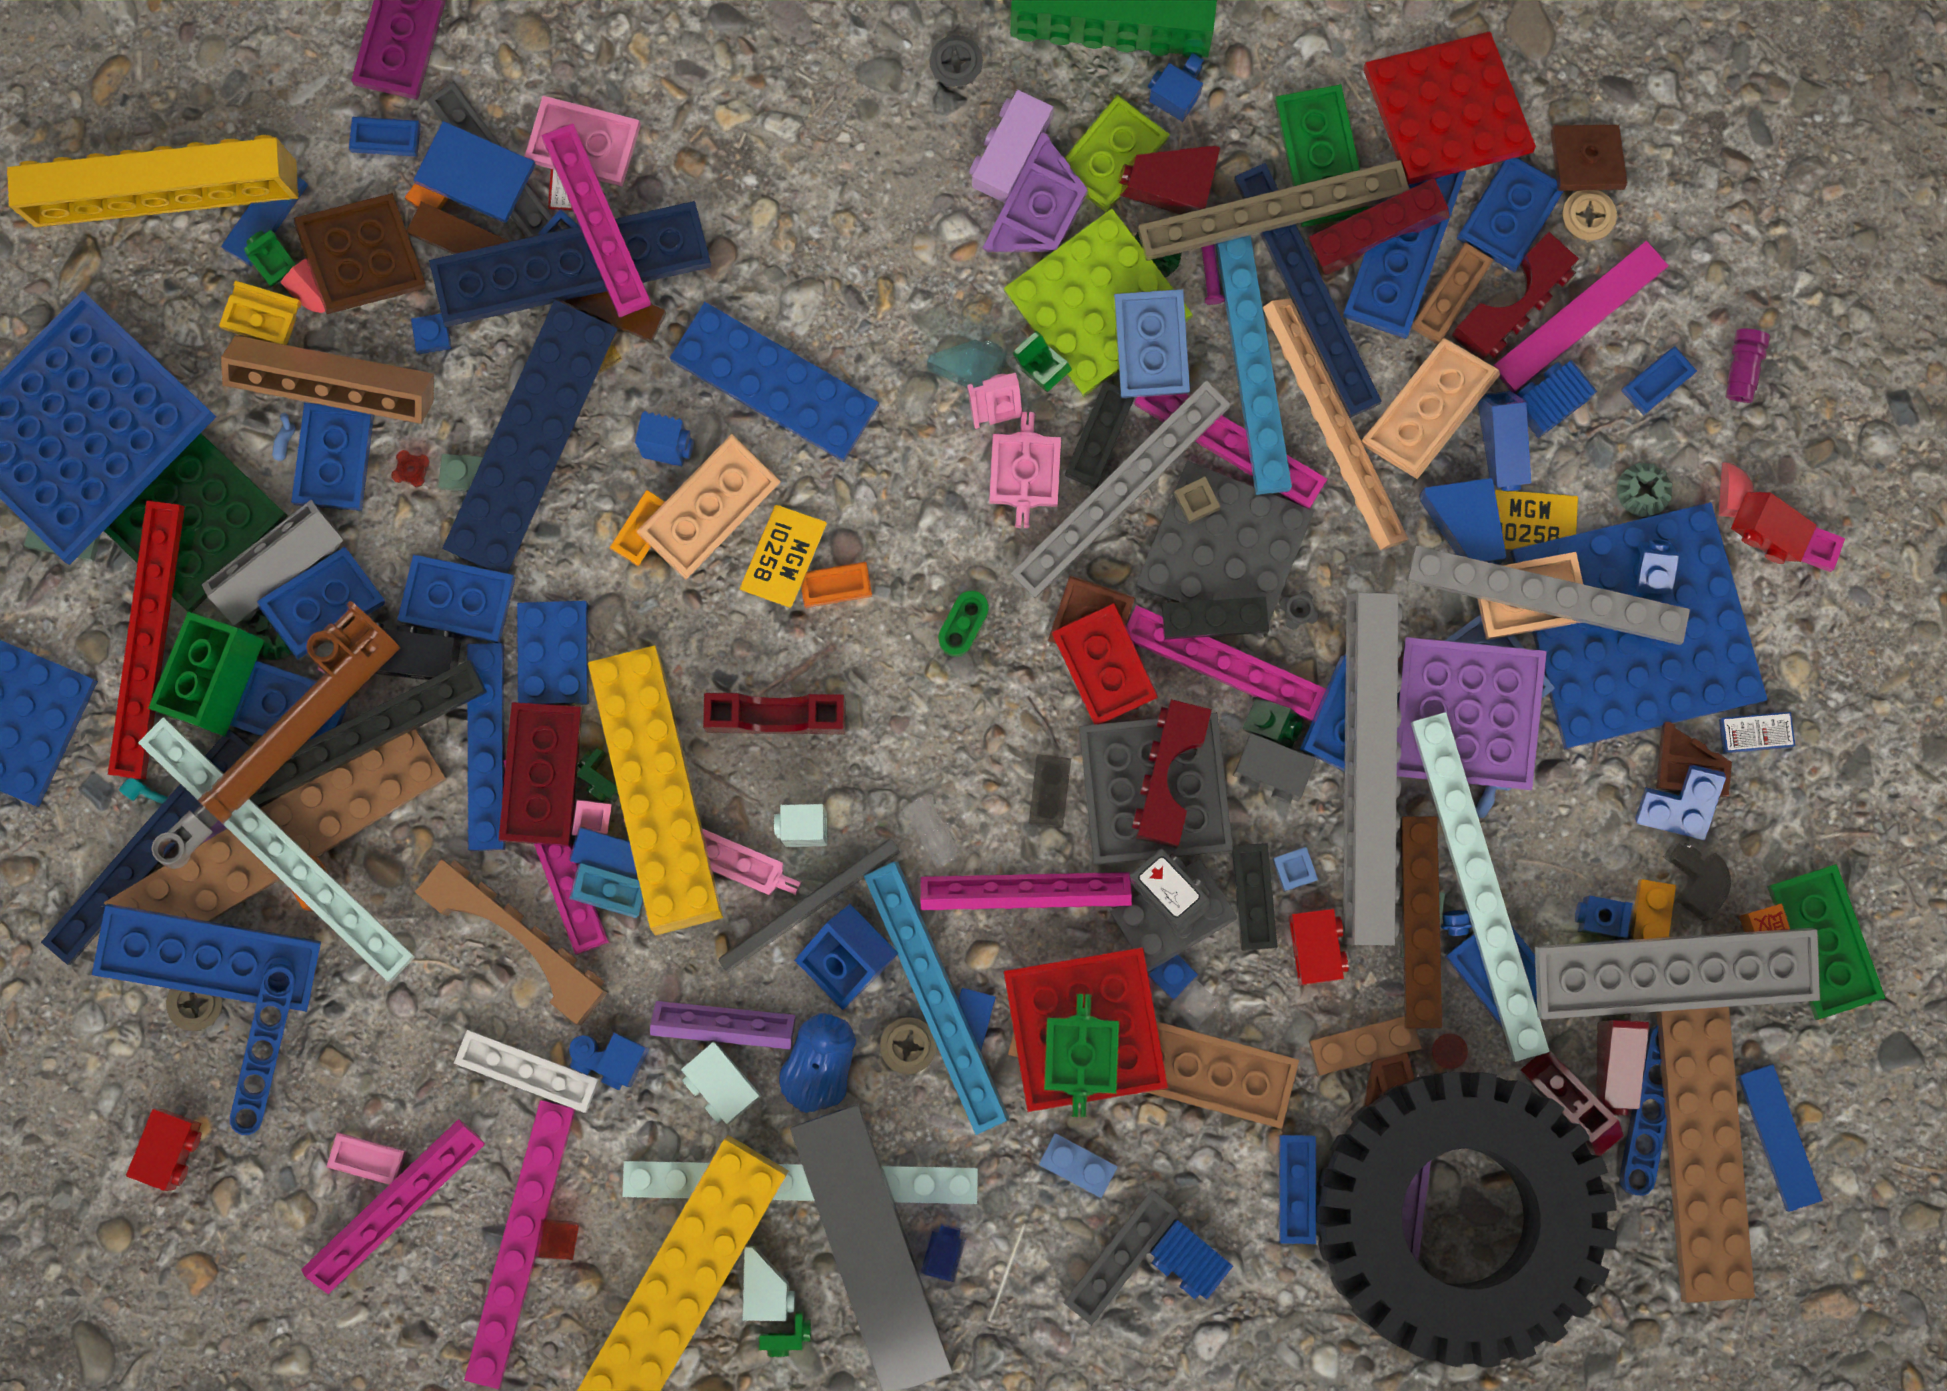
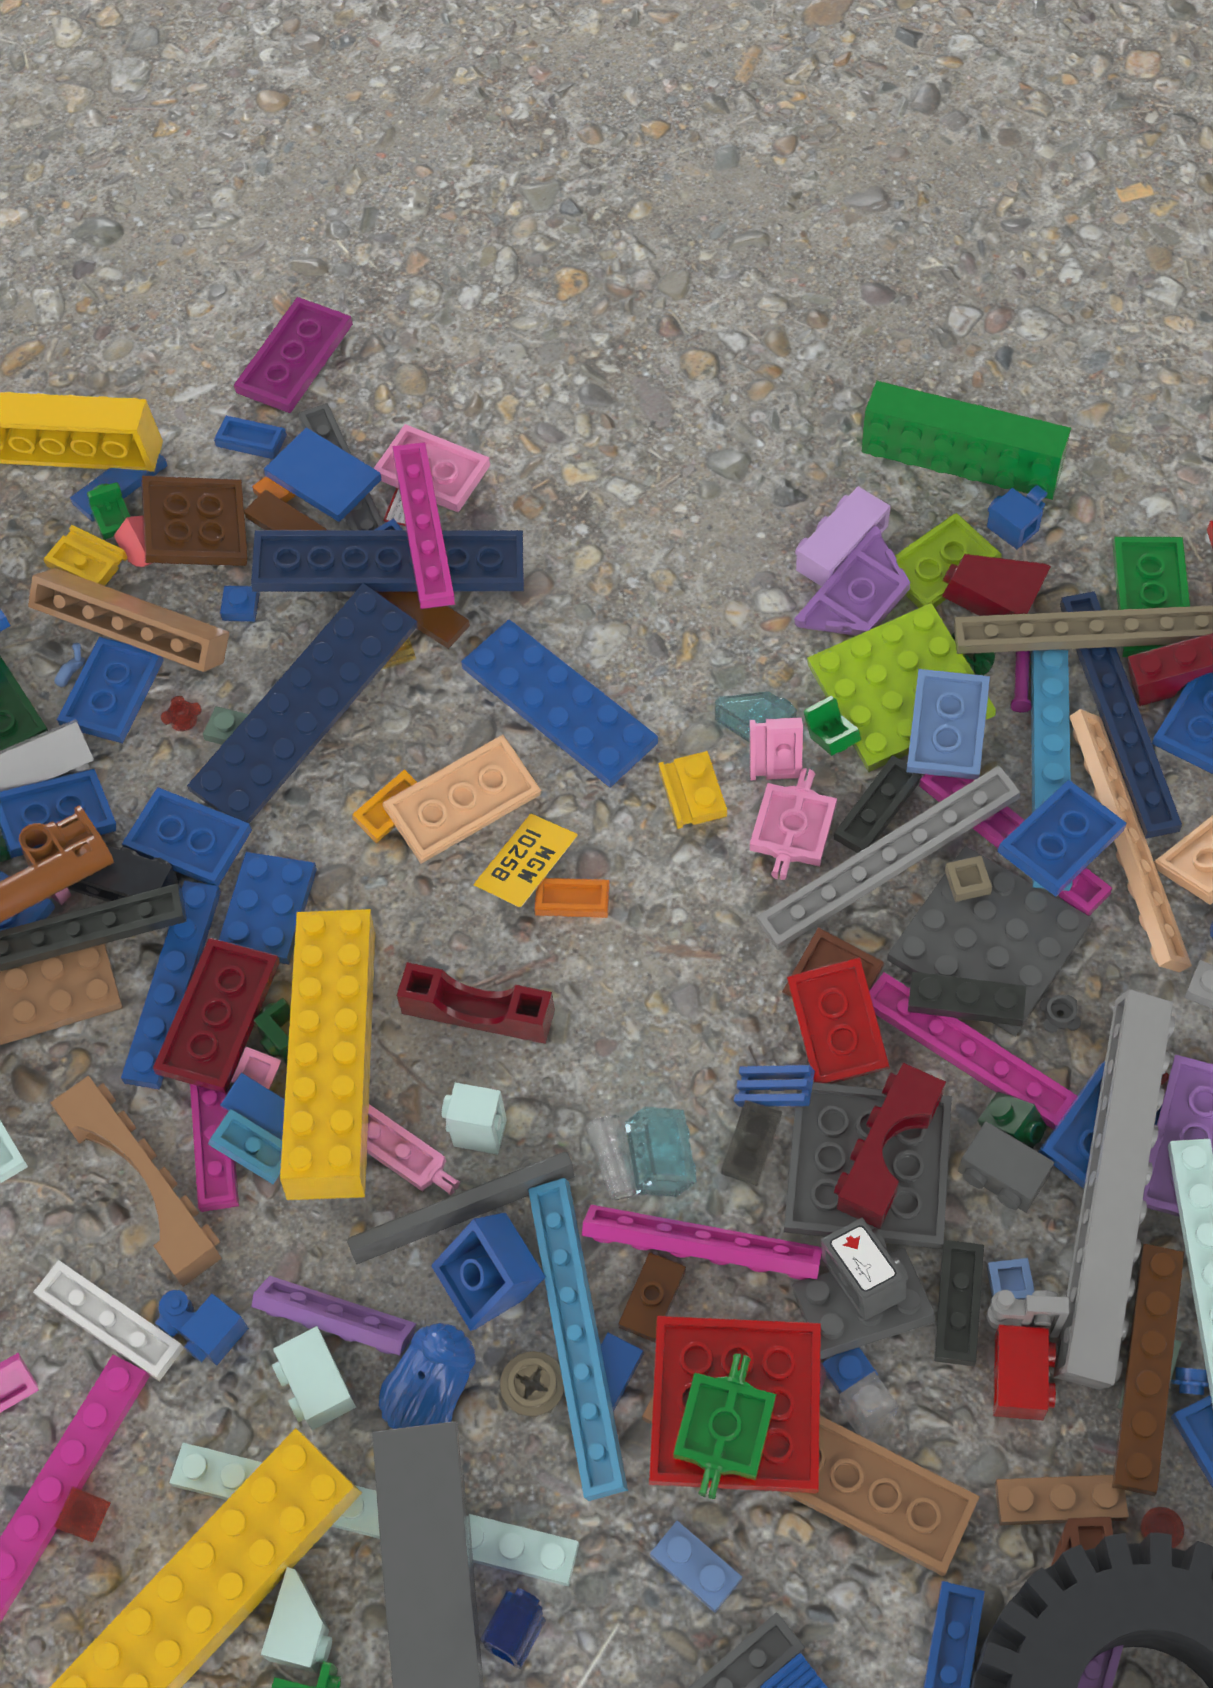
camera: 15 degrees right, 20 degrees down
(663, 439) = (433, 724): blue brick -> none
(923, 450) = (693, 789): none -> yellow plate
(962, 624) = (694, 959): green plate -> none
(966, 51) = (792, 454): dark grey gear -> none
(973, 819) = (660, 1151): none -> clear light blue brick
(992, 947) = (651, 1296): none -> reddish brown plate
(1032, 736) = (799, 1078): none -> blue tile
(1276, 447) = (1061, 837): none -> blue plate
(1322, 897) = (1038, 1310): none -> light grey plate

